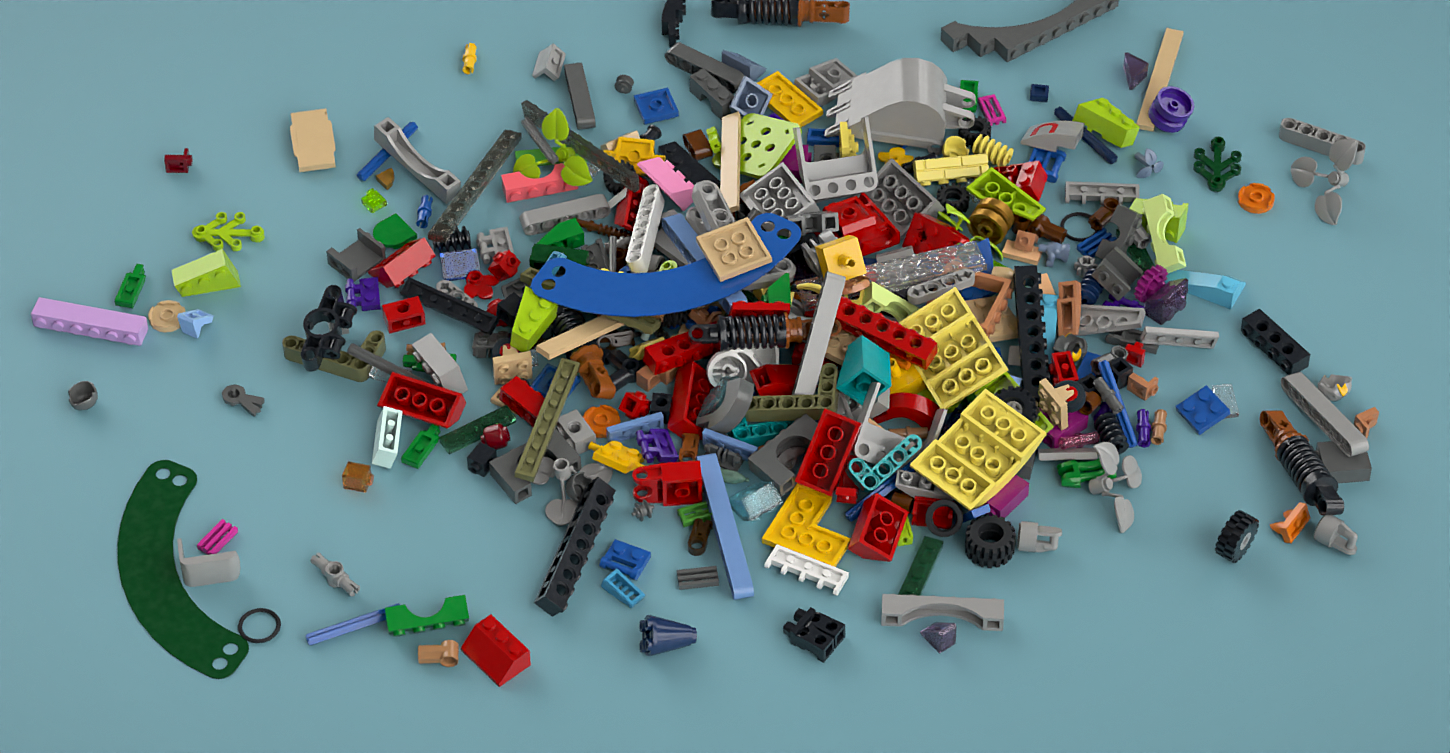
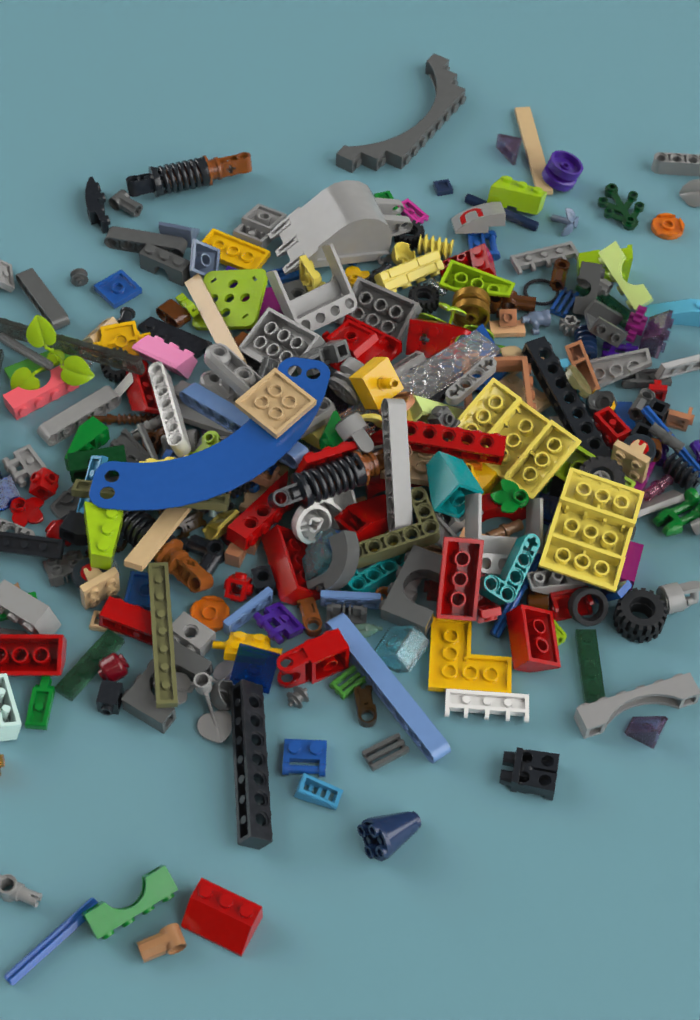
camera: 25 degrees left, 5 degrees up
(615, 471) = (254, 666): none -> clear blue plate
(702, 19) = (122, 201): none -> dark grey piece
(793, 292) = (353, 428): none -> light grey piece
(891, 310) = (443, 416): none -> dark grey brick
(918, 401) = (508, 496): none -> green plate
(1052, 318) = (578, 381): none -> olive tile

